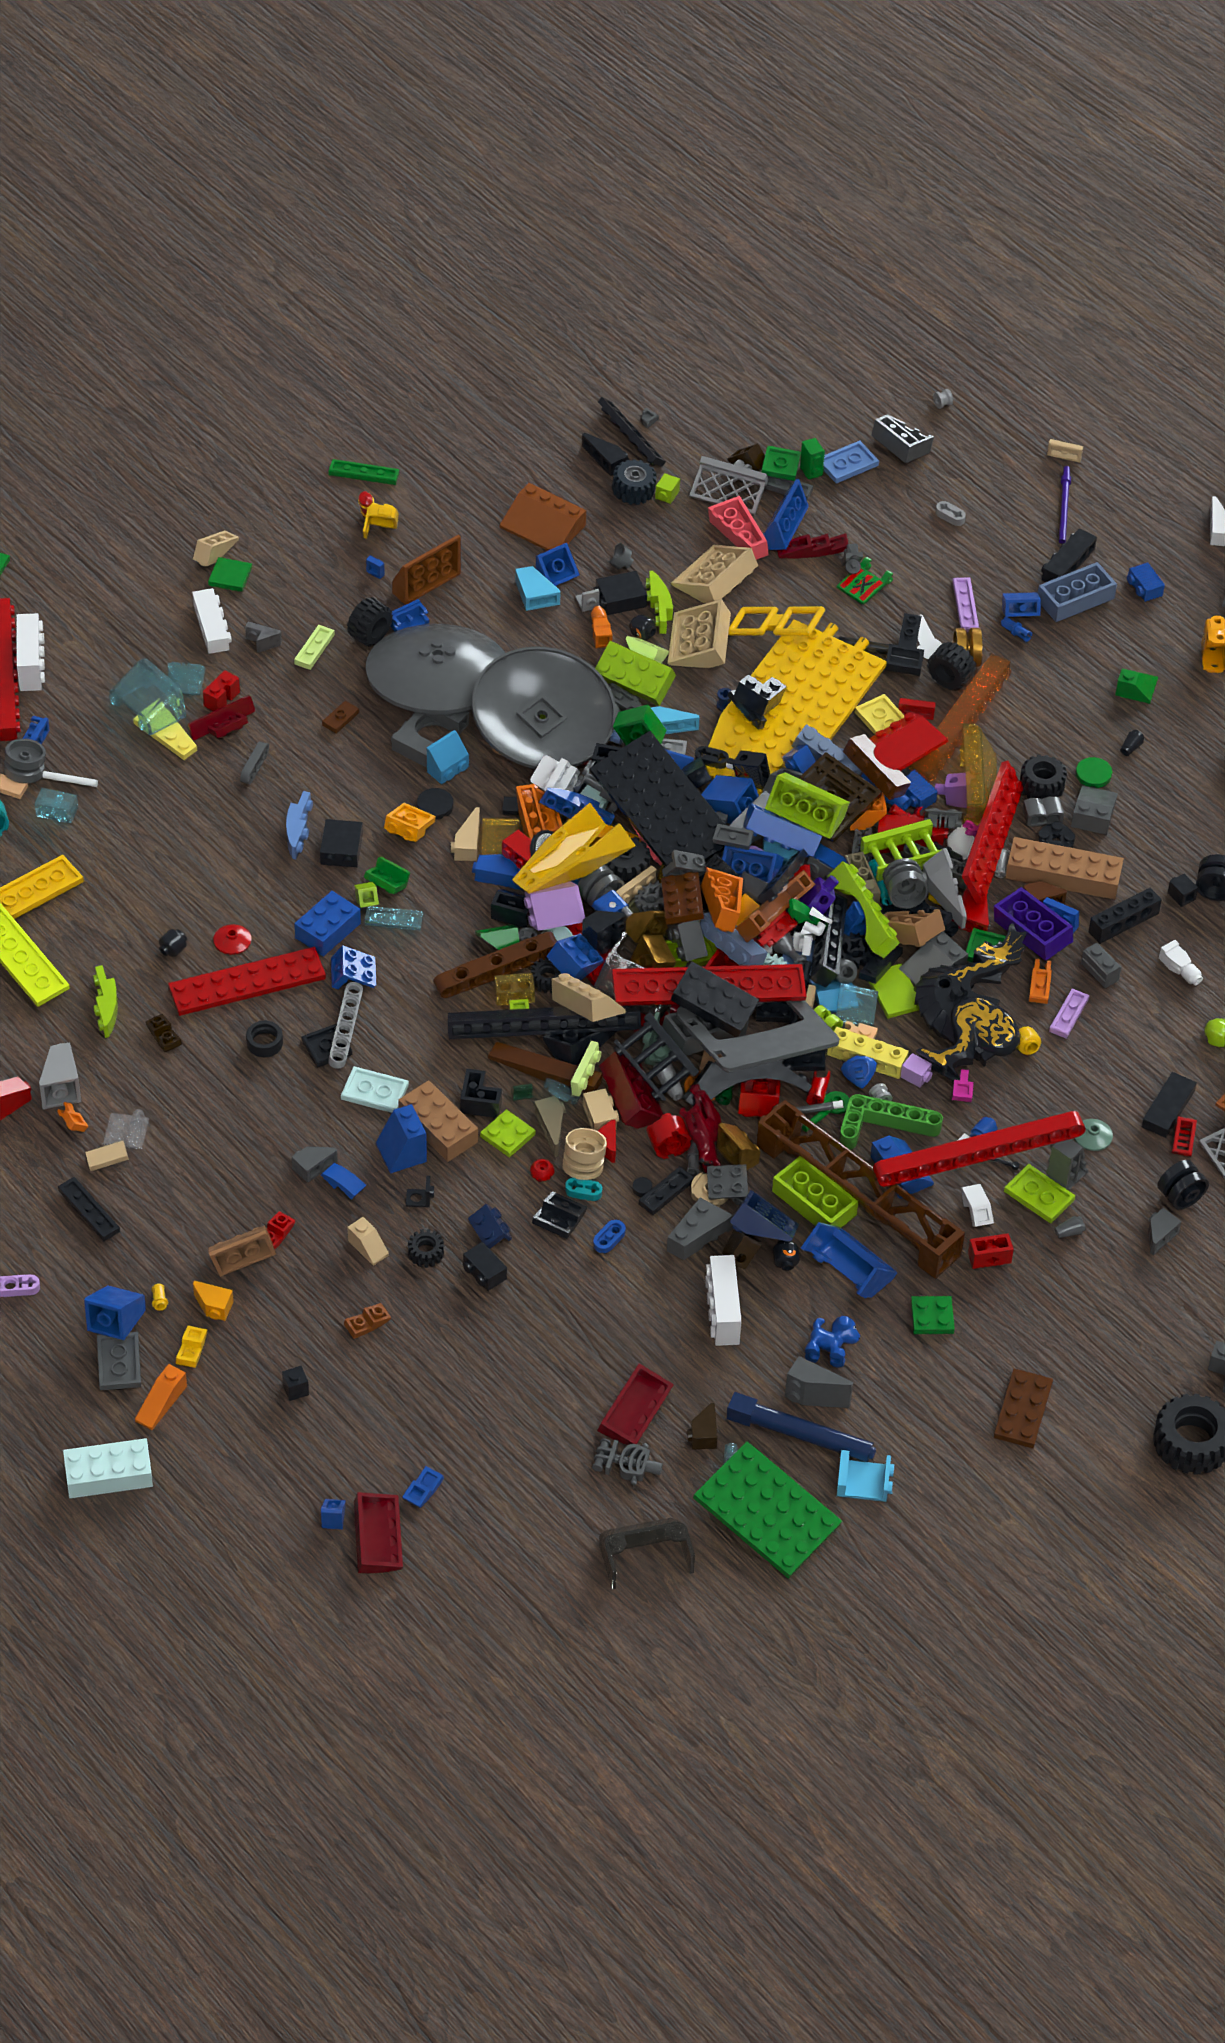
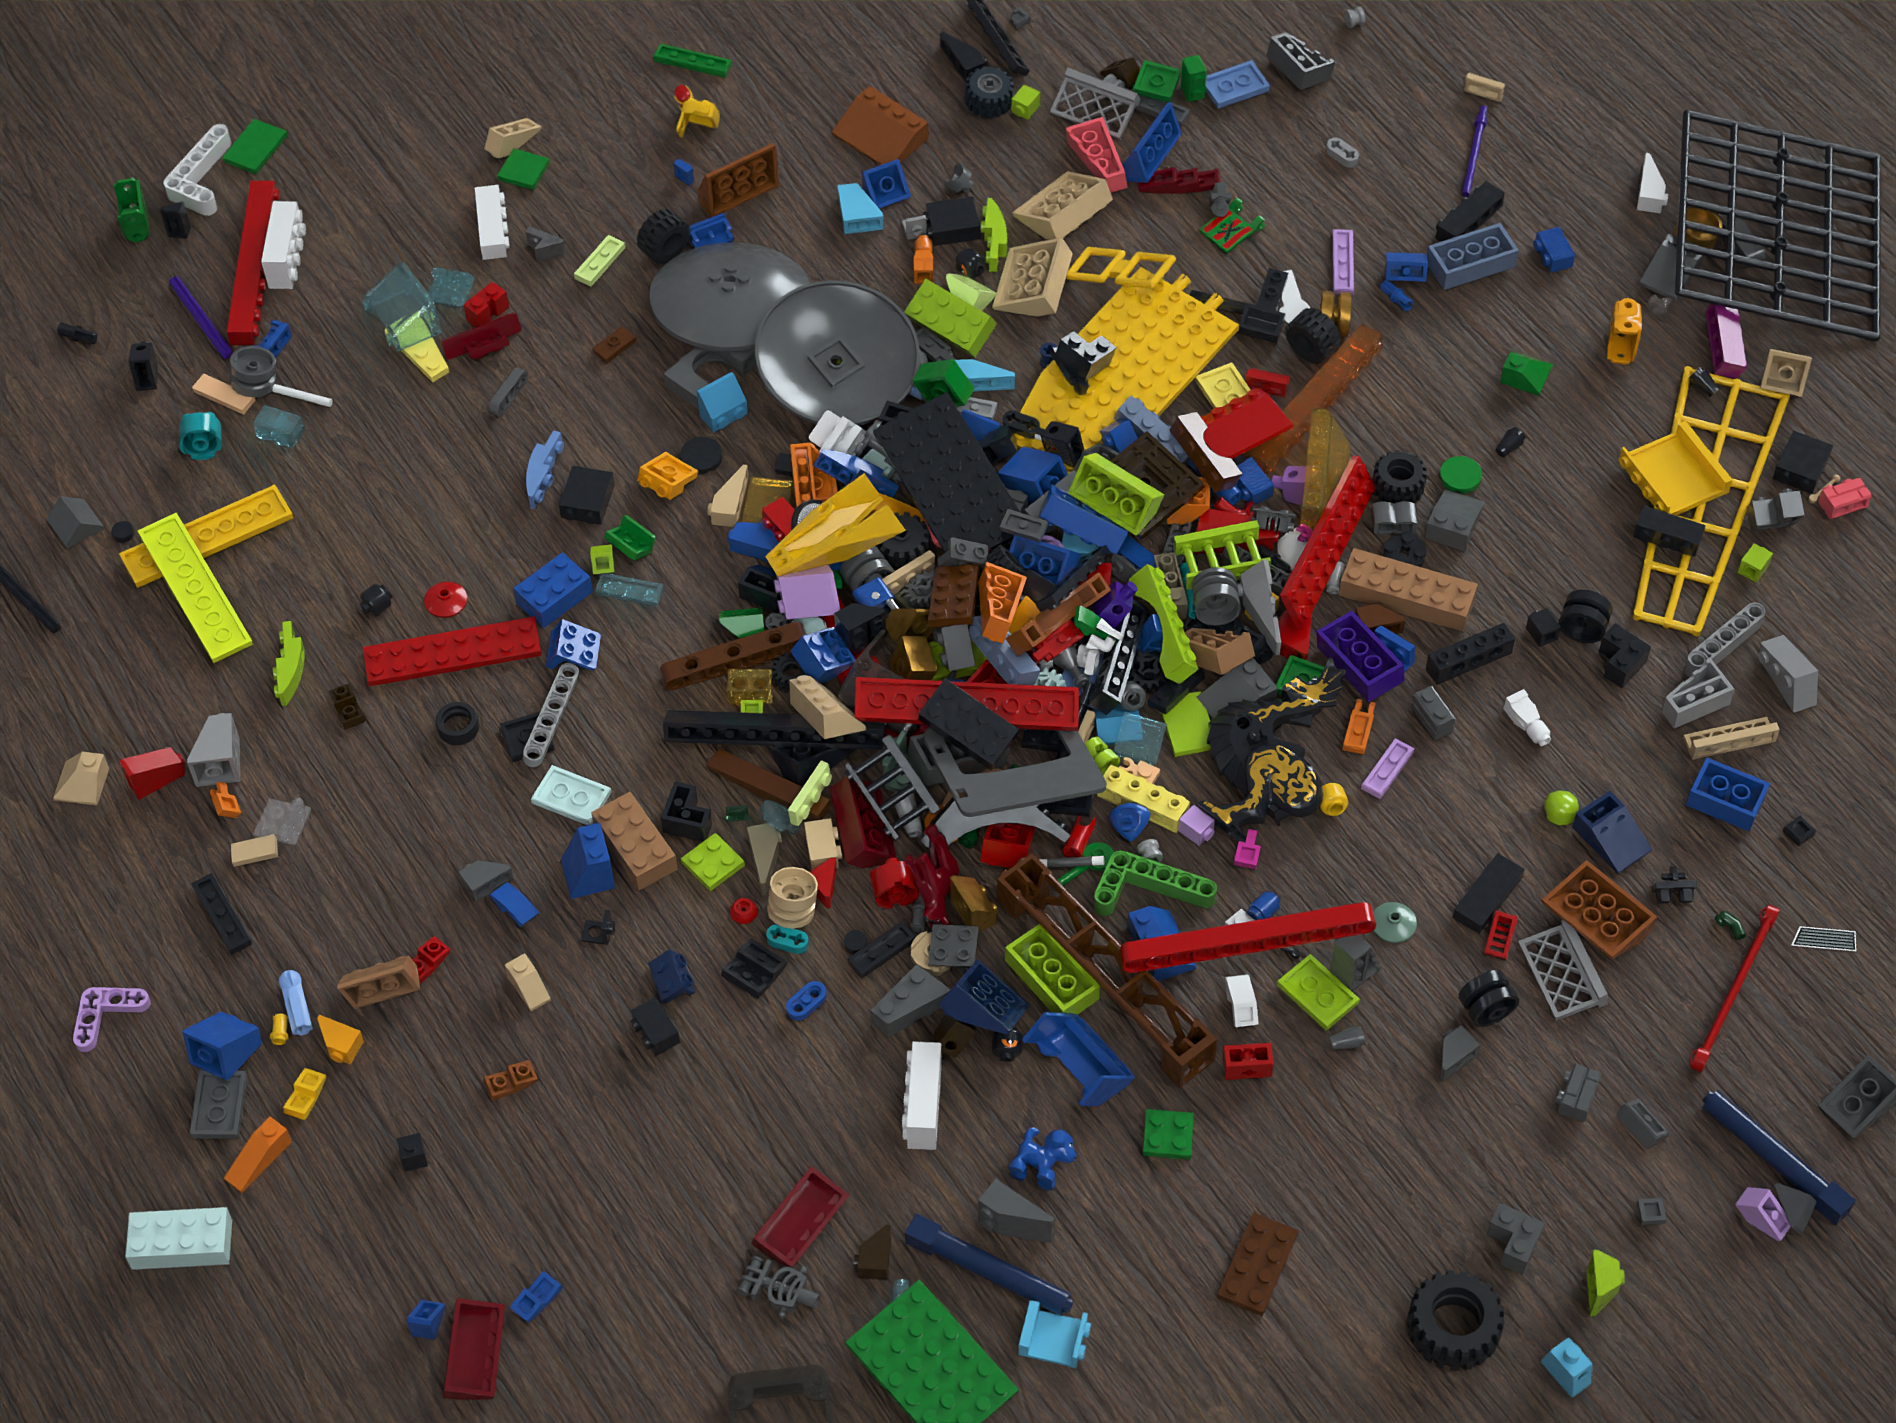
camera: 10 degrees right, 5 degrees up
(169, 1275) = (295, 1002): none -> light blue piece
(425, 1238) = (588, 985): black tyre -> none

